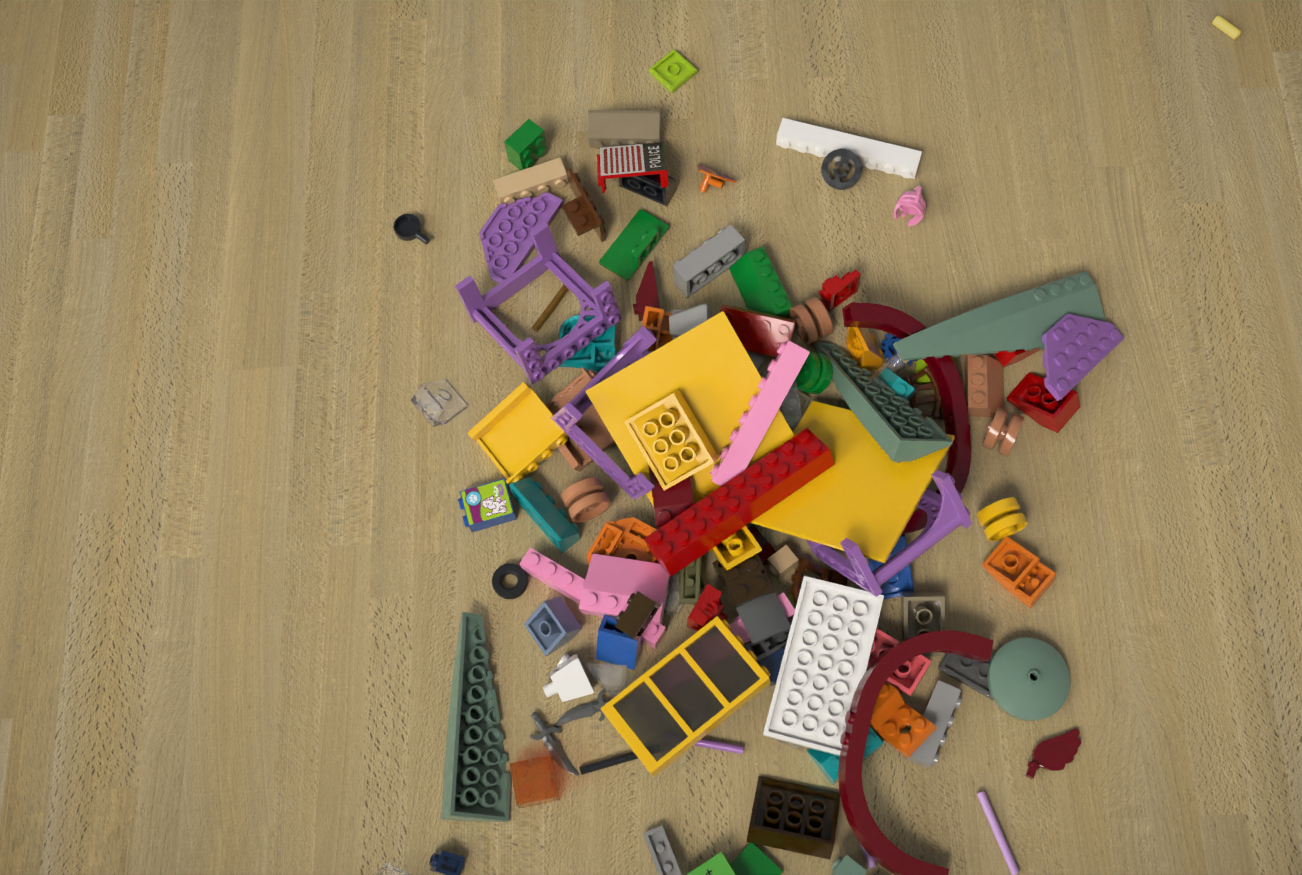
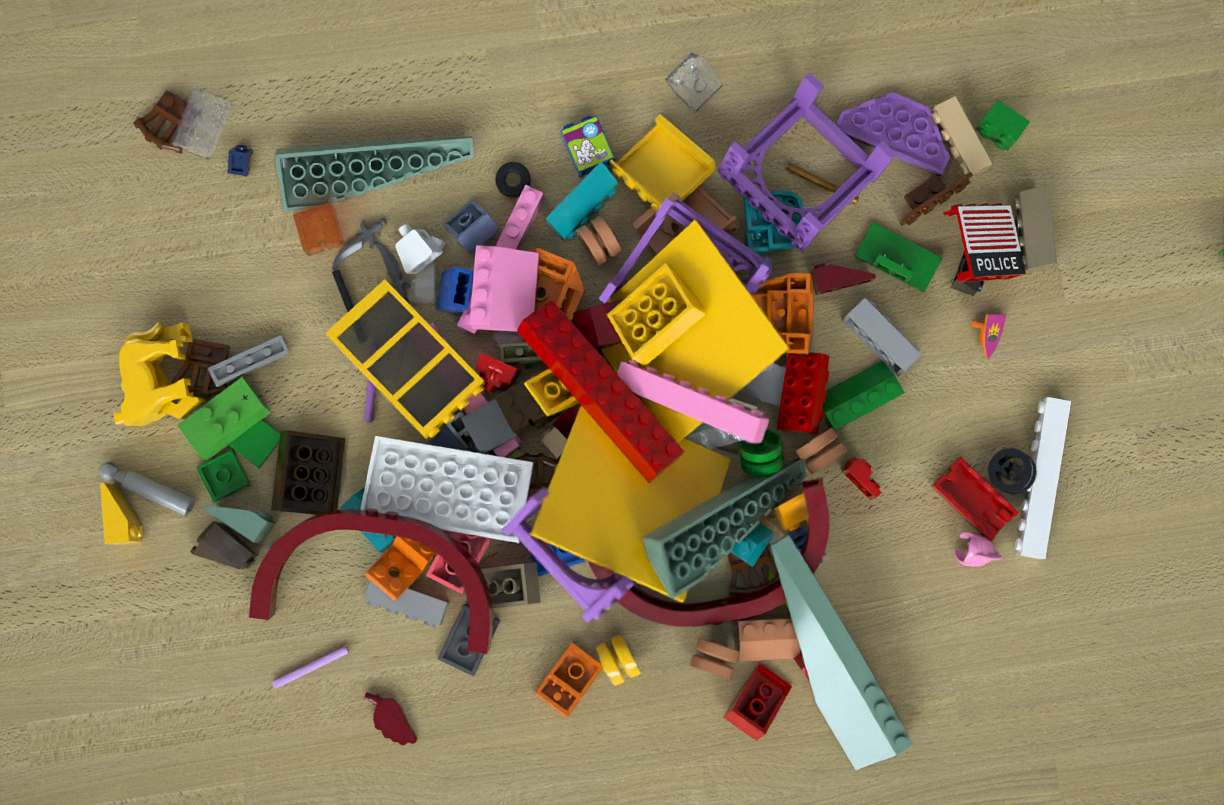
camera: 80 degrees right, 15 degrees up
(408, 228) = (890, 18): black piece -> none
(637, 615) = (466, 300): dark brown slope -> none
(673, 71) = (1124, 275): lime tile -> none
(686, 319) = (795, 322): light grey piece -> none
(862, 204) = (974, 499): none -> red piece
(1011, 683) = (463, 674): sand green dish -> none
(1074, 349) = (815, 731): medium lavender plate -> none

